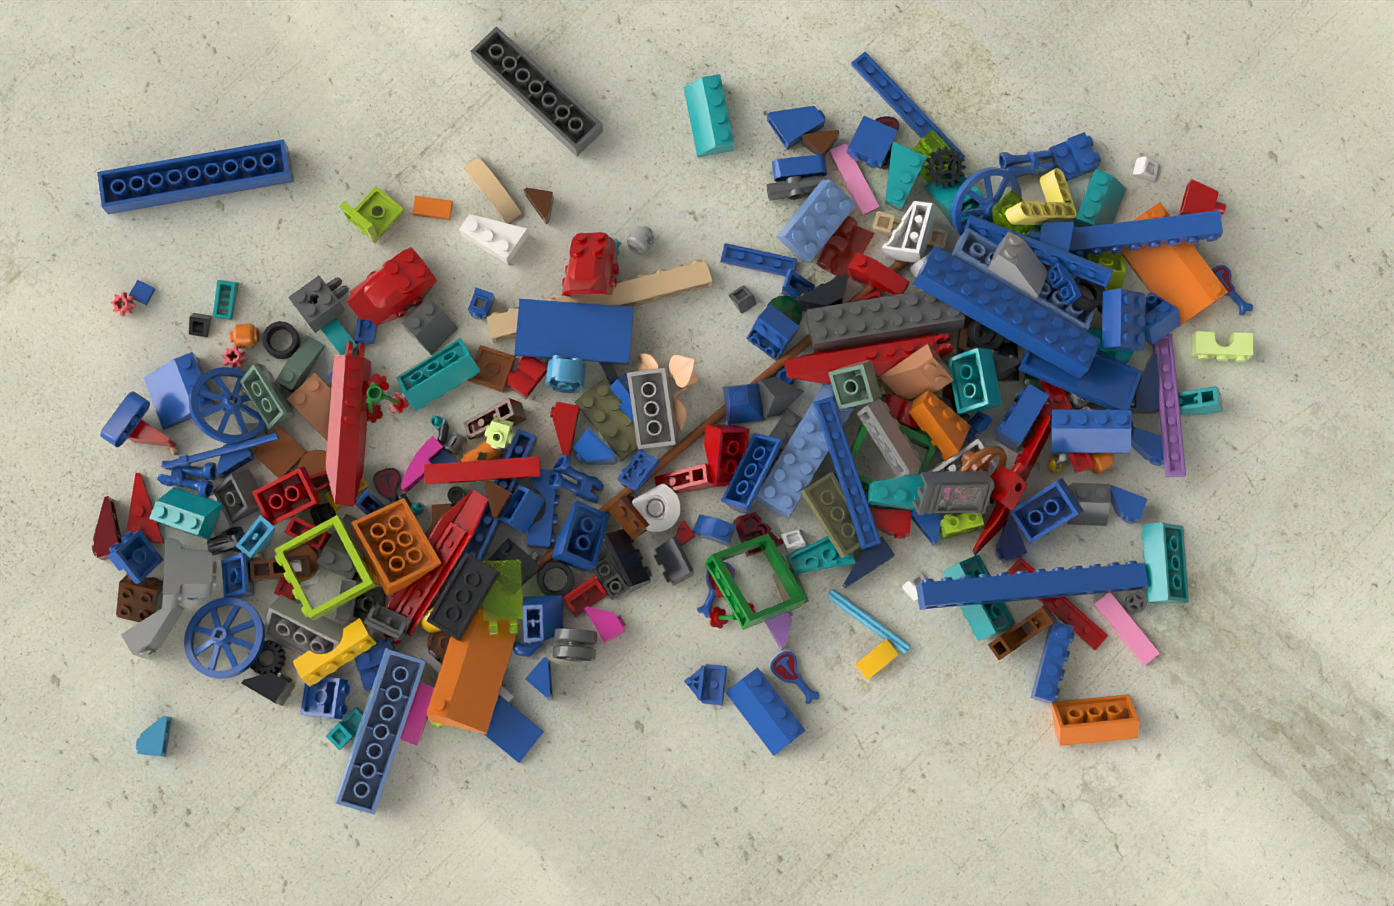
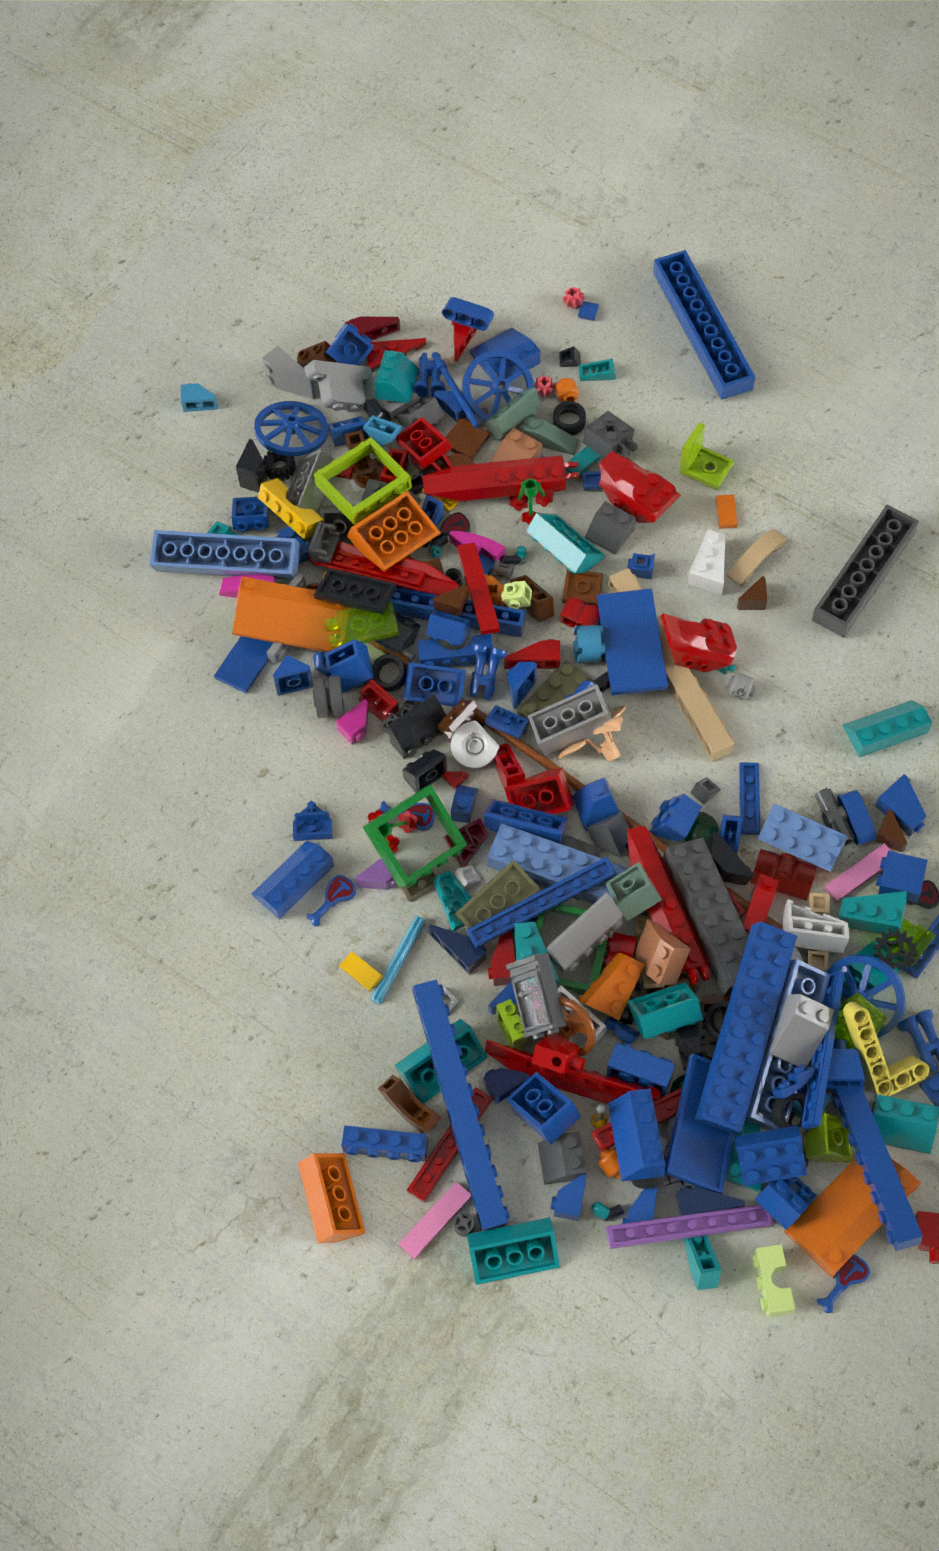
camera: 85 degrees right, 15 degrees down
(1142, 475) = (606, 1213): none -> arm

